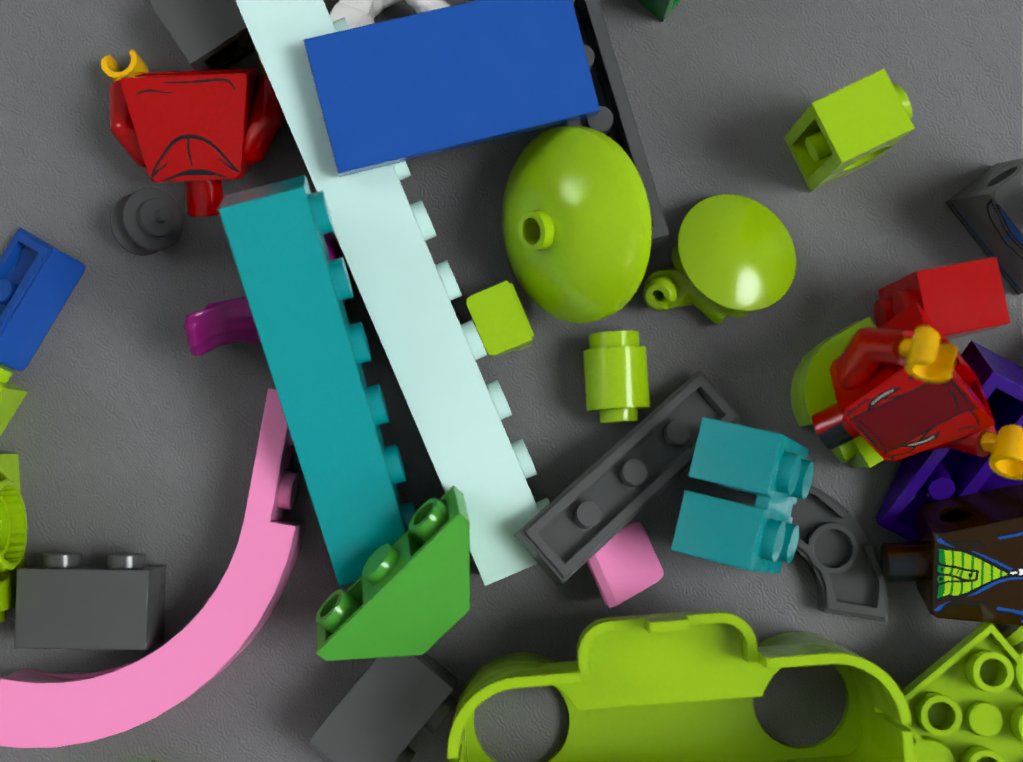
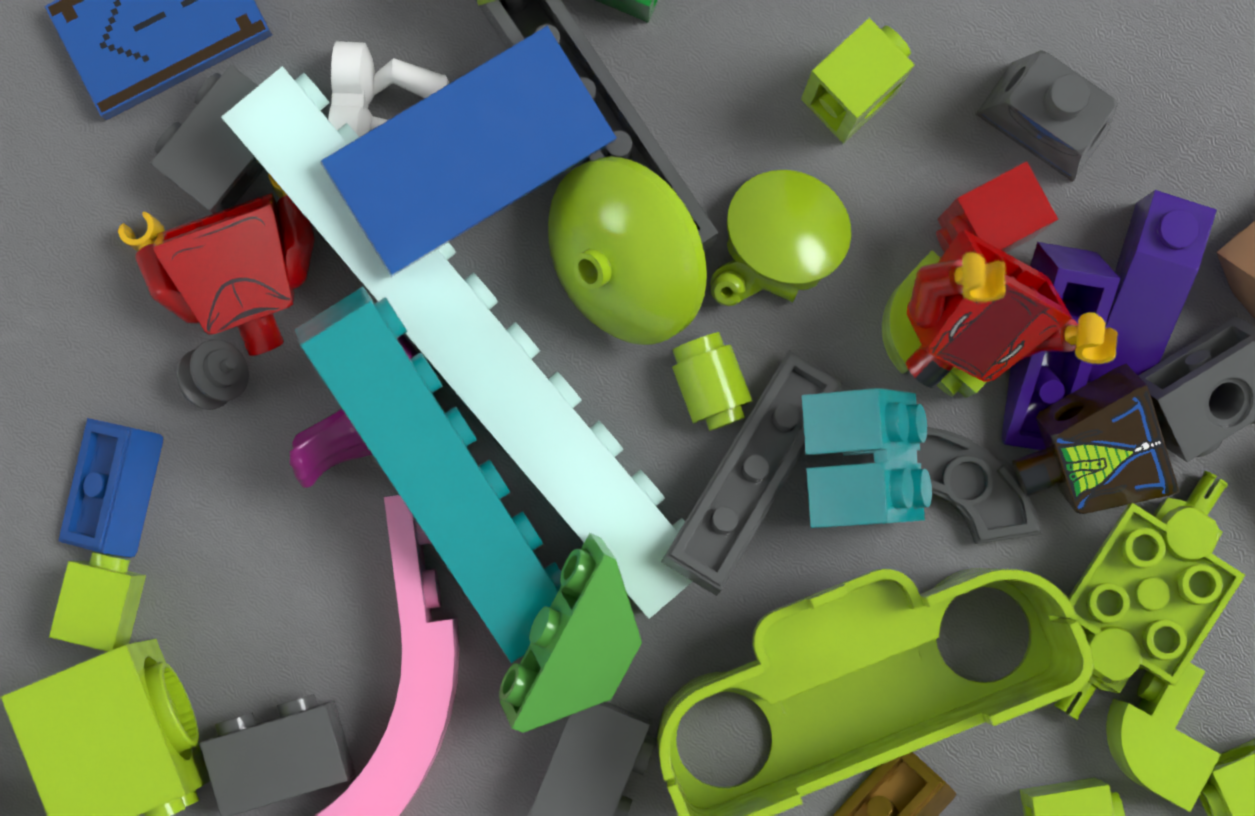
camera: 20 degrees left, 0 degrees up
(500, 319) = (584, 362): lime slope -> none
(625, 565) = (775, 557): bright pink slope -> none

